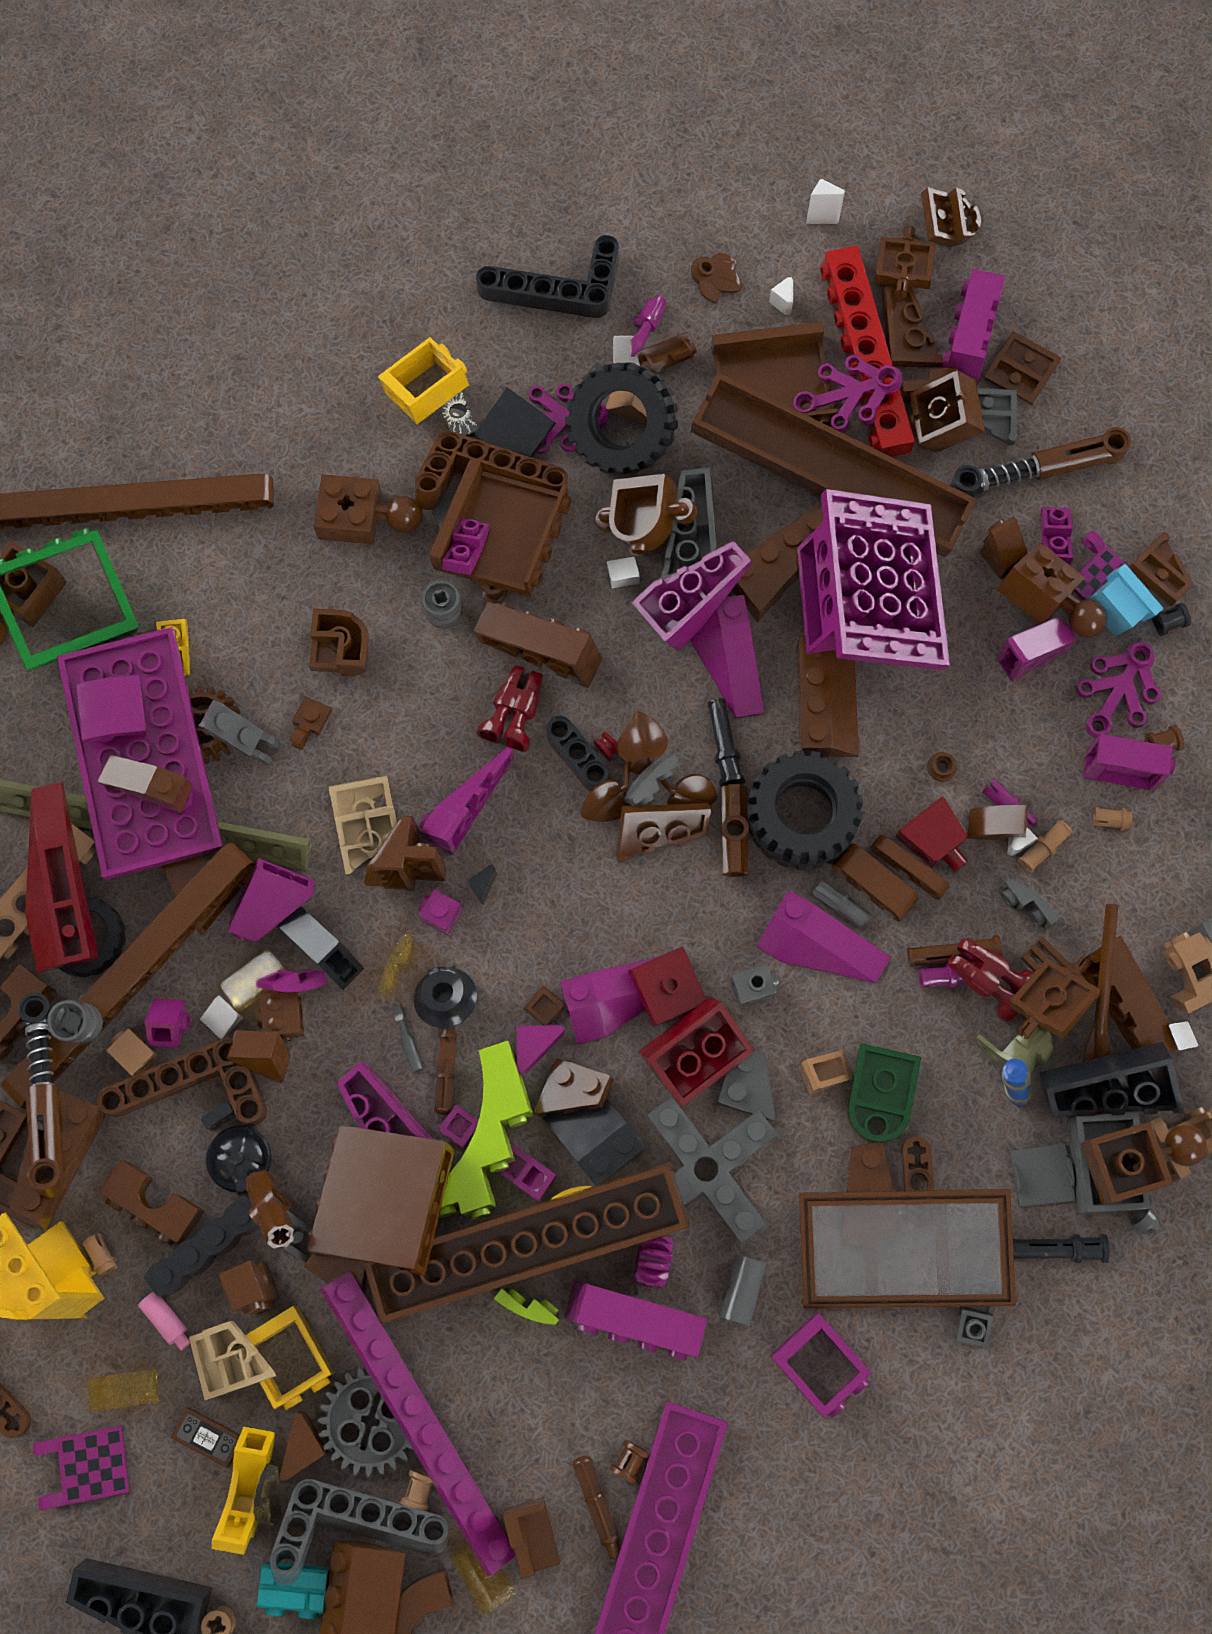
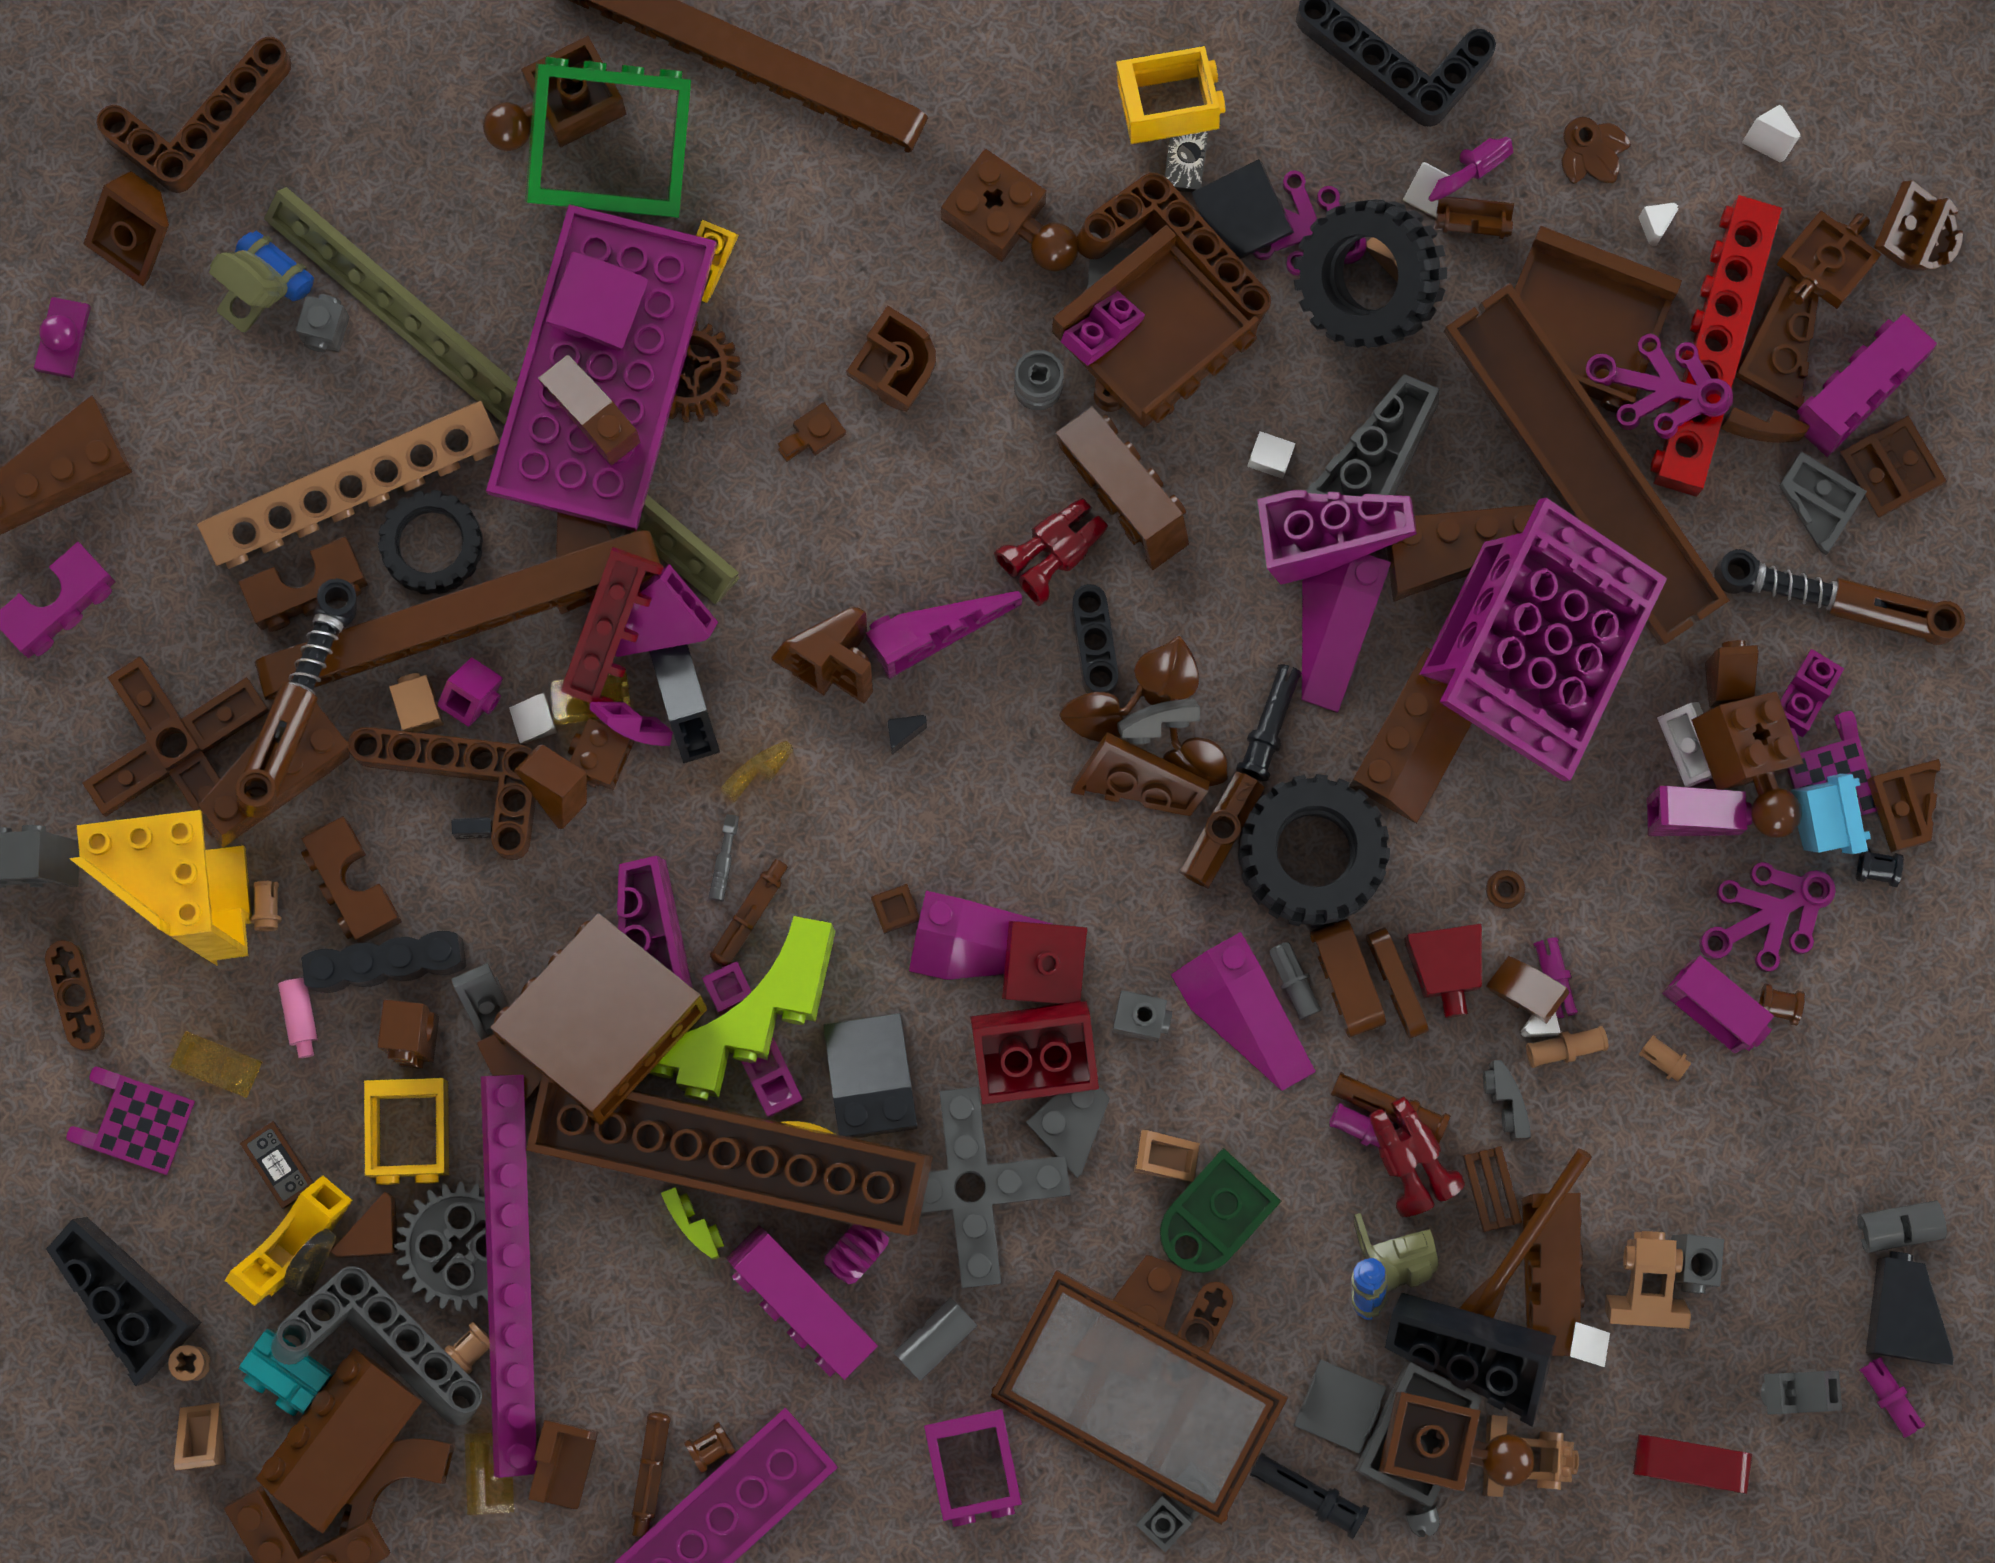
camera: 25 degrees right, 5 degrees up
(55, 888) = (428, 473): dark red wedge -> none
(74, 1021) = (373, 637): dark grey wheel -> none
(227, 1360) = (342, 1096): tan slope -> none
(235, 1156) = (469, 887): black piece -> none
(237, 732) = (723, 403): dark grey hinge -> none
(237, 922) = (607, 625): none -> dark red hinge
(269, 1209) = (473, 960): reddish brown piece -> none
(358, 827) = (801, 588): tan slope -> none
(439, 911) = (837, 736): magenta brick -> none
(445, 997) = (791, 835): black piece -> none
(534, 1043) = (859, 943): magenta slope -> none
(572, 1089) = (874, 1016): wing -> none
(606, 745) = (1132, 650): dark red bush -> none
(644, 512) = (1332, 400): reddish brown piece -> none
(946, 411) = (1762, 473): reddish brown brick -> none
(1001, 609) = (1685, 744): none -> white slope
(1054, 998) = (1464, 1220): reddish brown plate -> none

